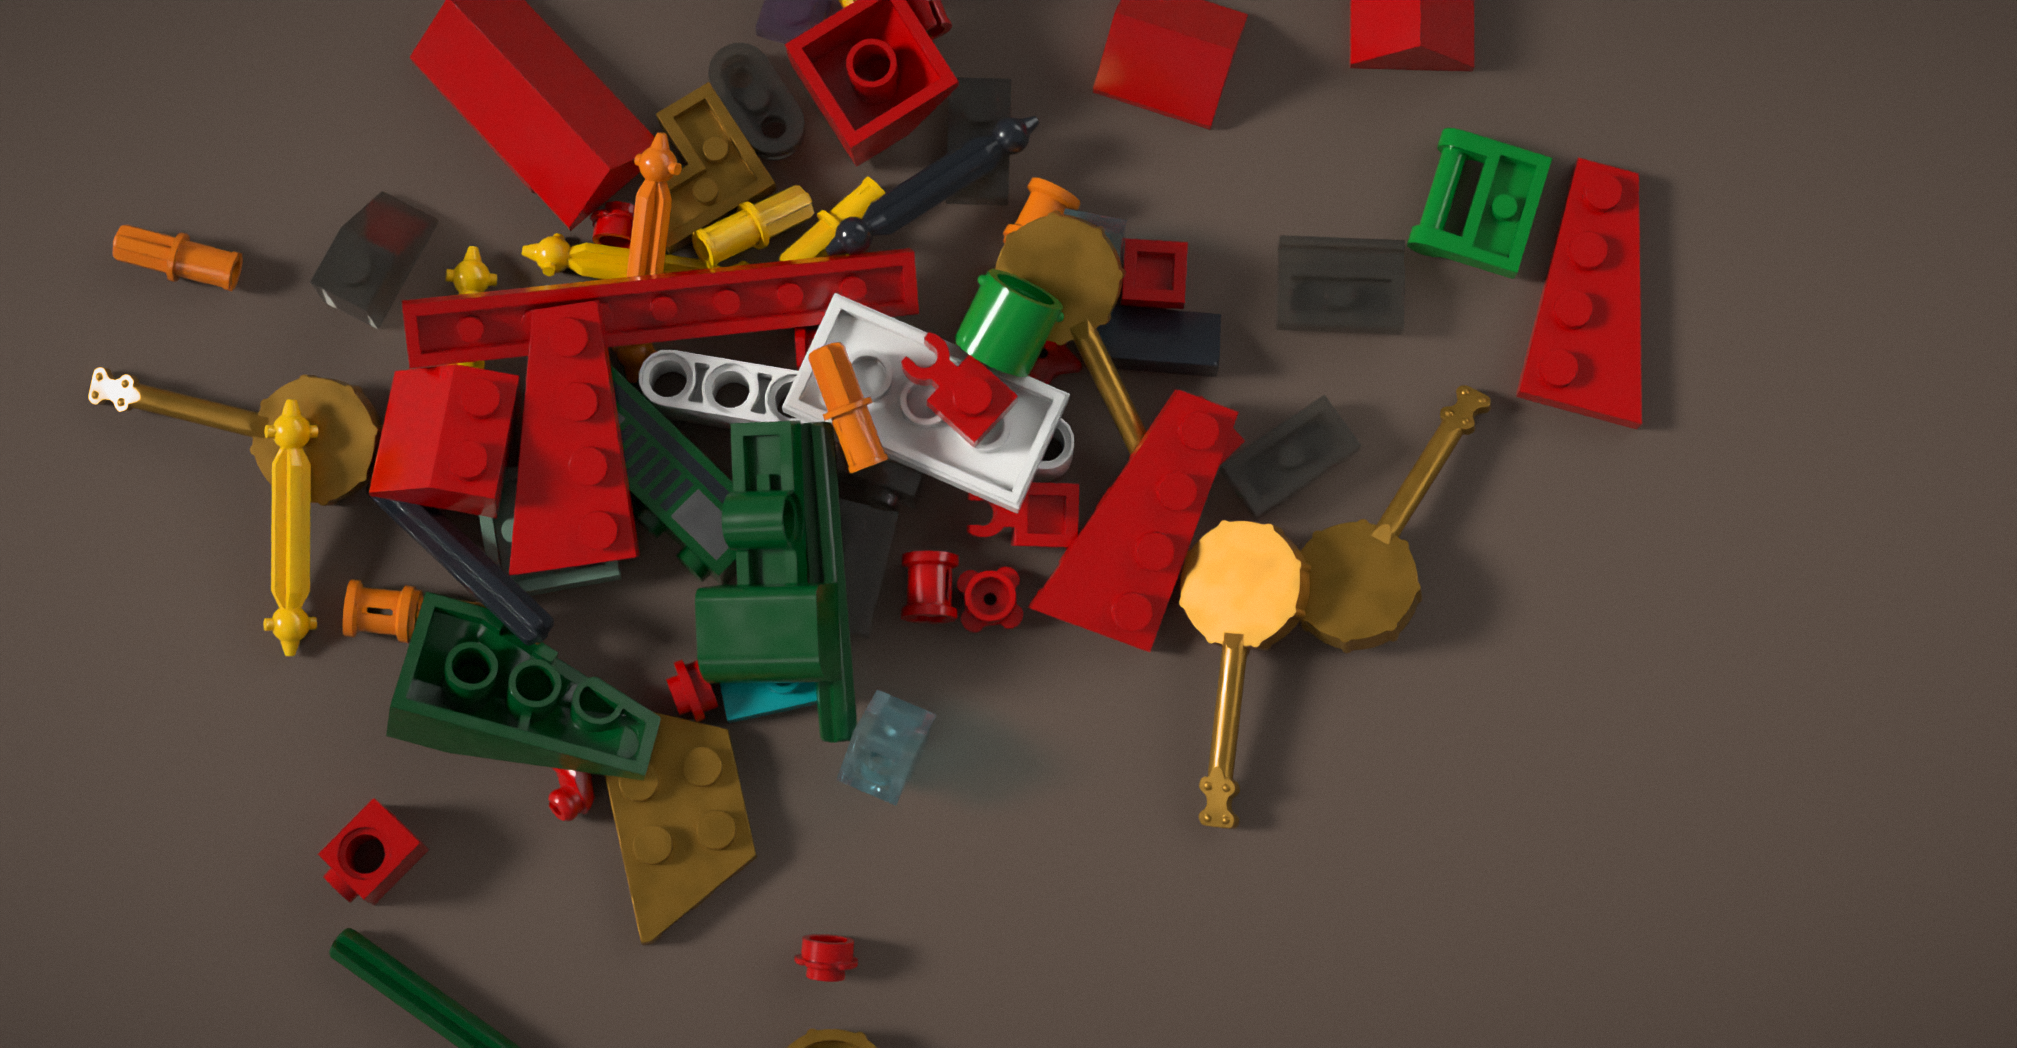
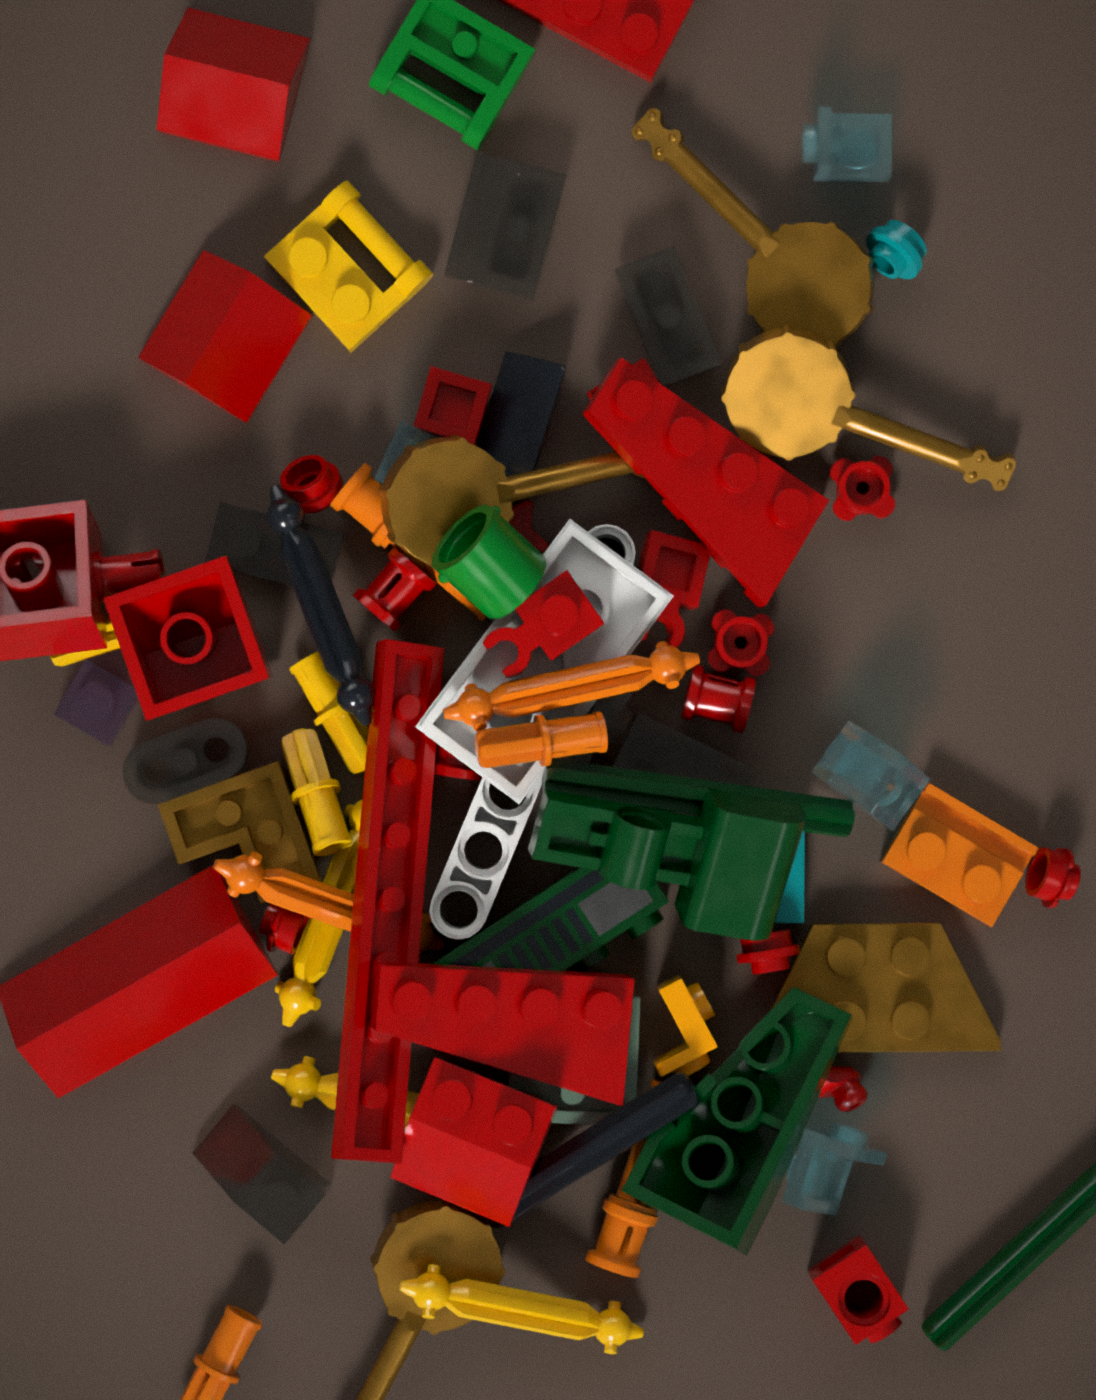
camera: 75 degrees left, 10 degrees up
(488, 792) = (823, 1166): none -> clear light blue bracket
(615, 625) = (690, 1012): none -> light orange bracket
(828, 860) = (959, 854): none -> orange plate
(907, 426) = (571, 686): none -> orange wheel
(961, 255) = (394, 589): none -> red bush
(1048, 157) = (311, 482): none -> red plate
(1180, 669) = (875, 475): none -> red plate
(1248, 138) = (332, 280): none -> yellow plate
(1410, 661) = (896, 250): none -> teal plate
(1500, 591) = (848, 146): none -> clear light blue bracket

